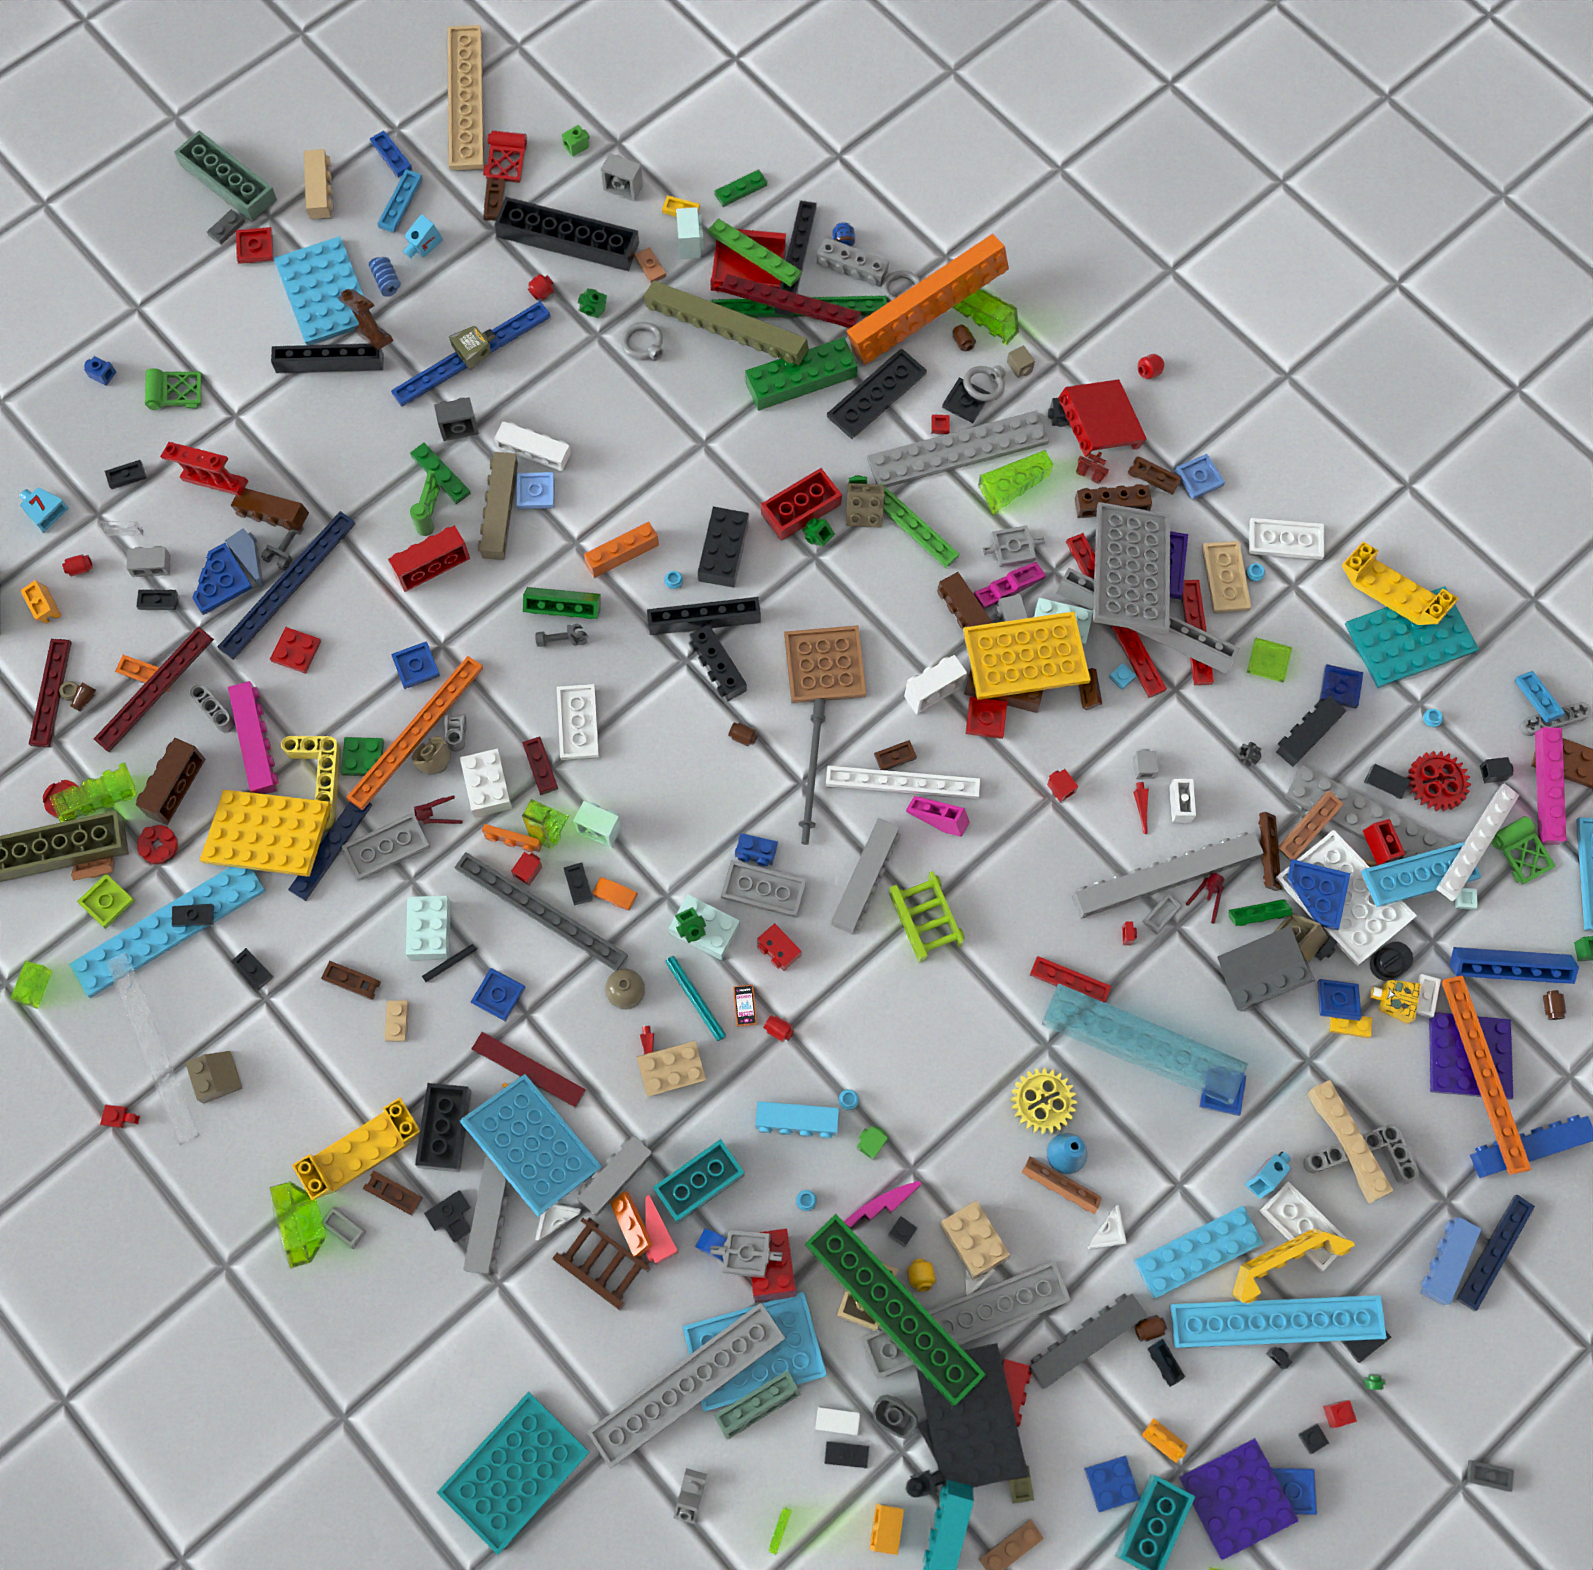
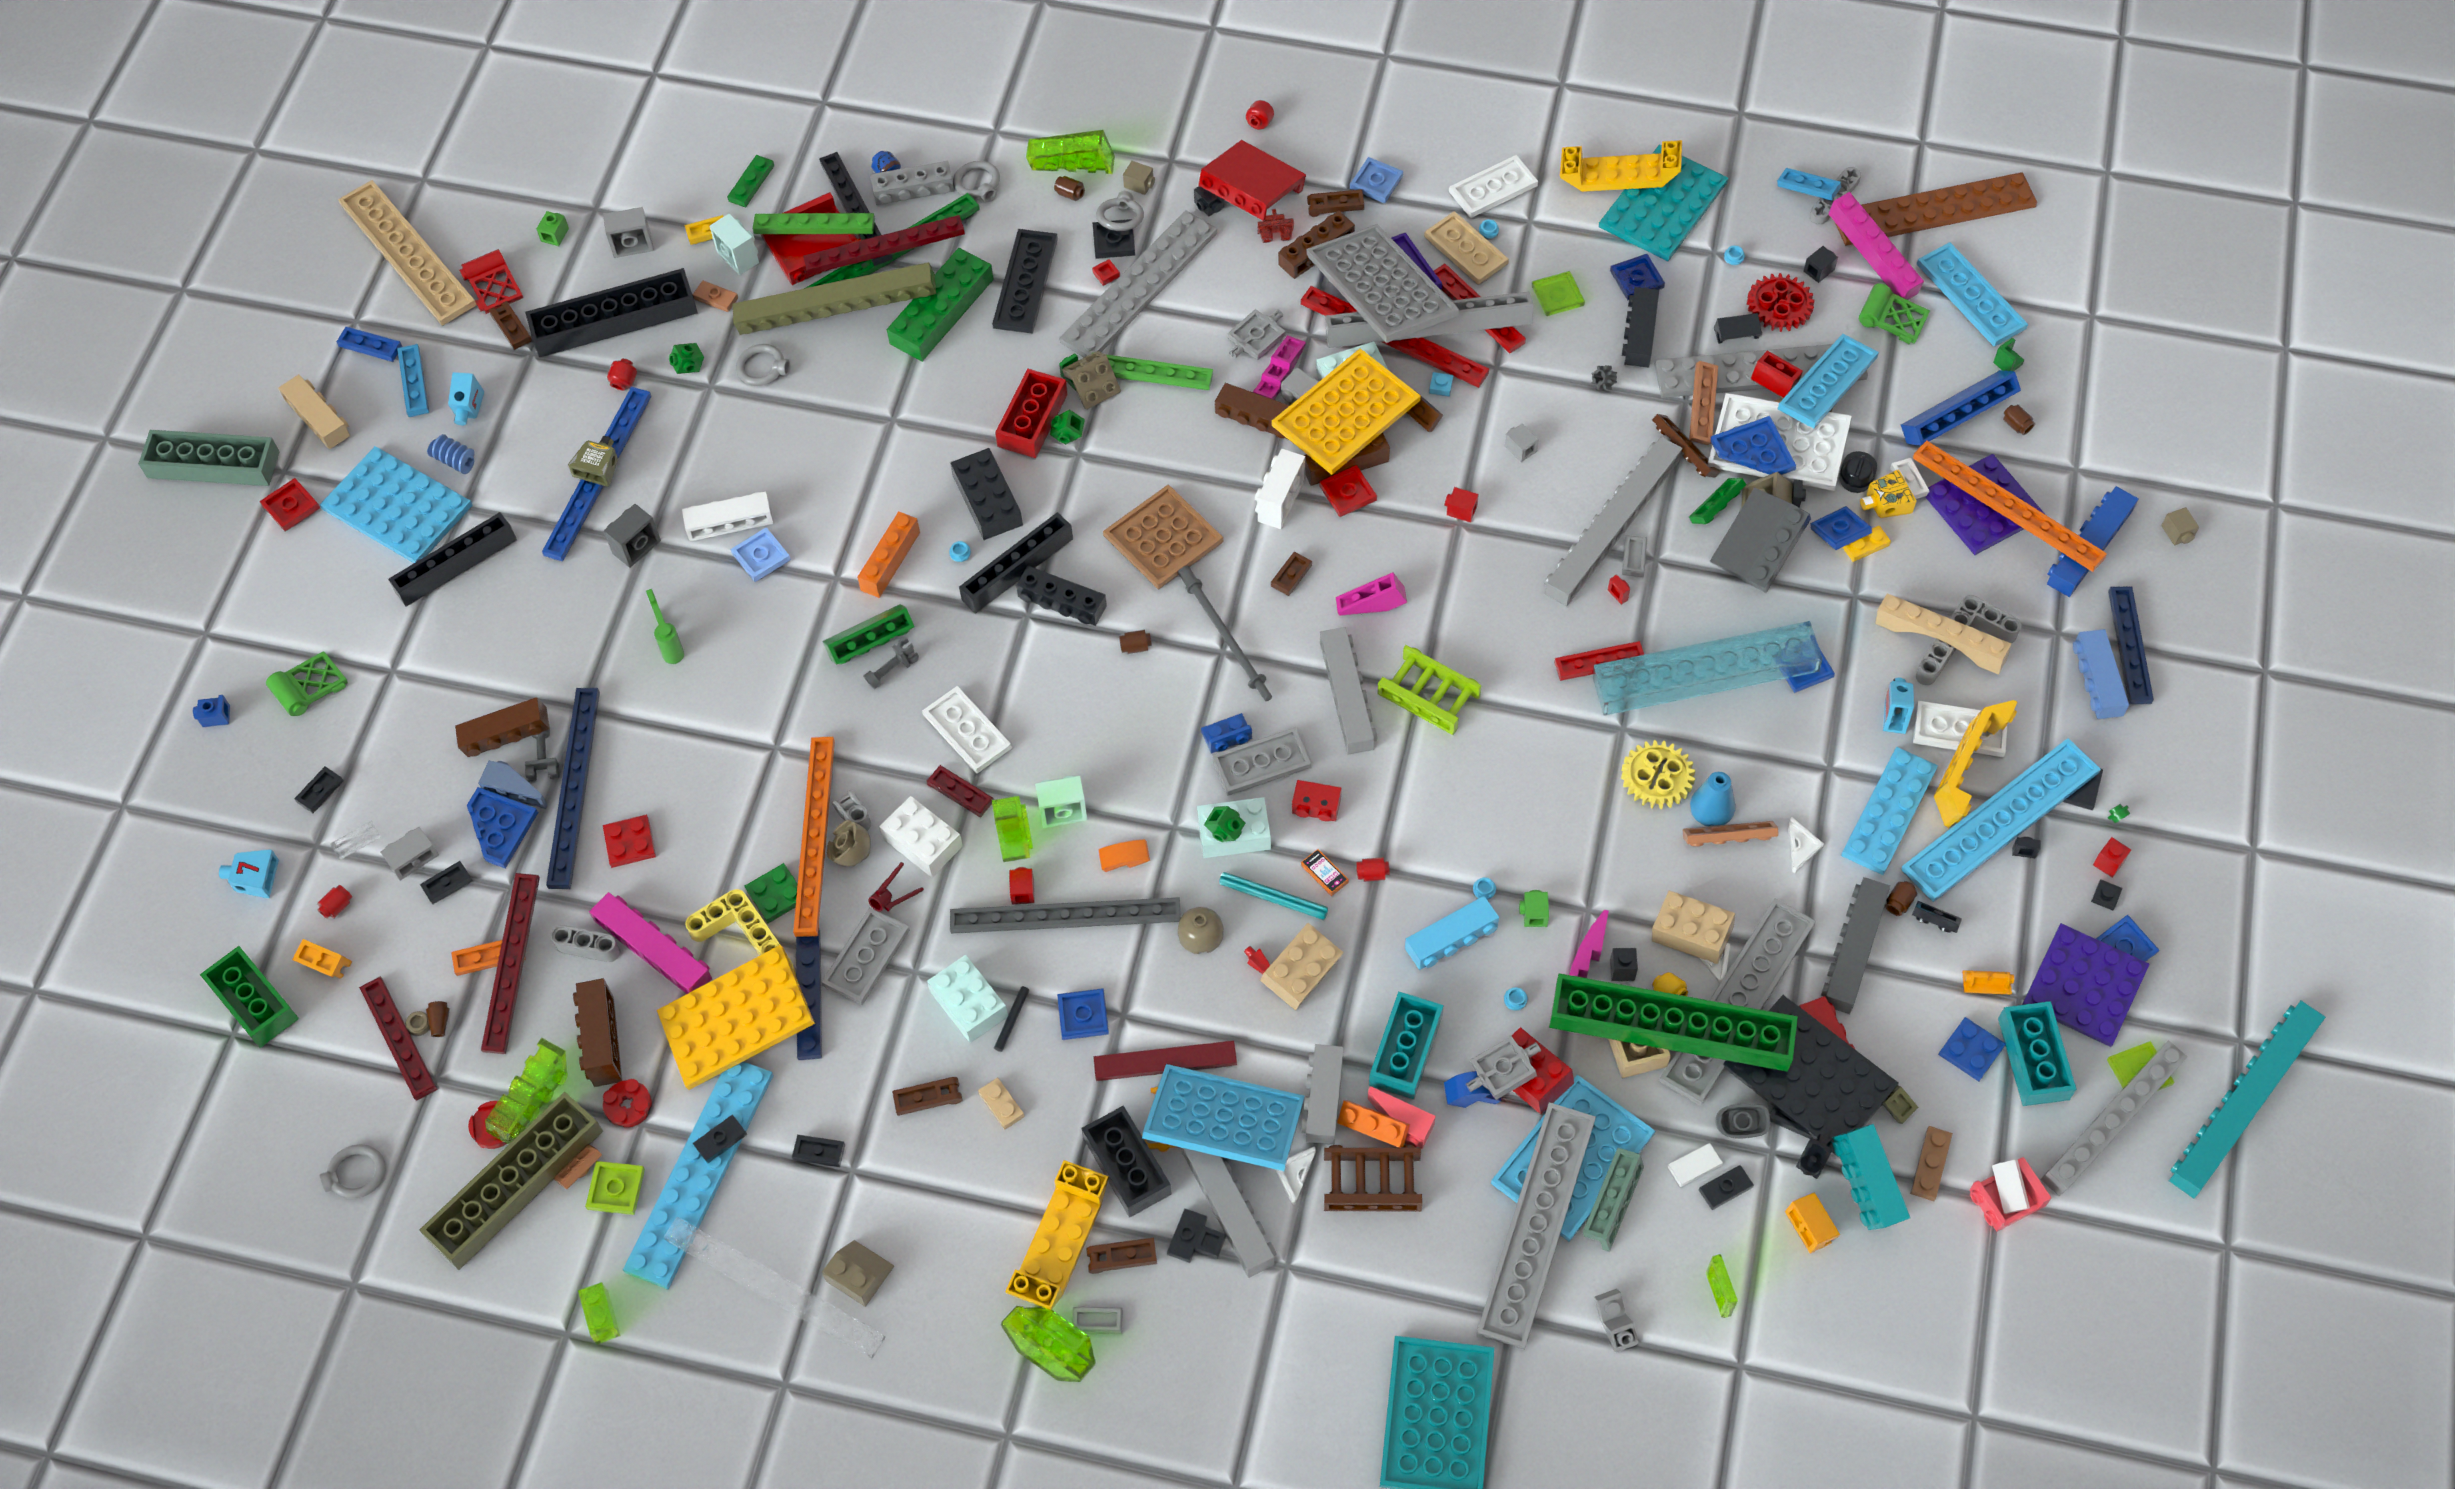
camera: 30 degrees left, 10 degrees down
(116, 1116) = (786, 1376): red plate -> none
(204, 468) = (410, 739): red fence -> none
(226, 227) = (244, 506): dark grey plate -> none
(367, 325) = (473, 509): reddish brown fence -> none
(415, 665) = (764, 778): blue plate -> none
(429, 558) = (704, 673): red brick -> none
(446, 478) = (635, 594): green plate -> none
(499, 506) = (735, 589): dark tan brick -> none
(511, 838) = (985, 869): orange plate -> none
(578, 883) = (1082, 868): black plate -> none
(903, 782) = (1315, 591): white plate -> none
(928, 299) = (1014, 169): orange brick -> none
(1012, 480) = (1211, 279): clear neon green wedge -> none
(1141, 798) = (1540, 473): red piece -> none
(1182, 801) = (1578, 450): white brick -> none
(1213, 885) = (1660, 504): dark red plant -> none
(1466, 899) = (1878, 381): light aqua plate -> none
(1477, 842) = (1853, 327): white plate -> none
(1490, 1476) = (2270, 823): dark grey plate -> none

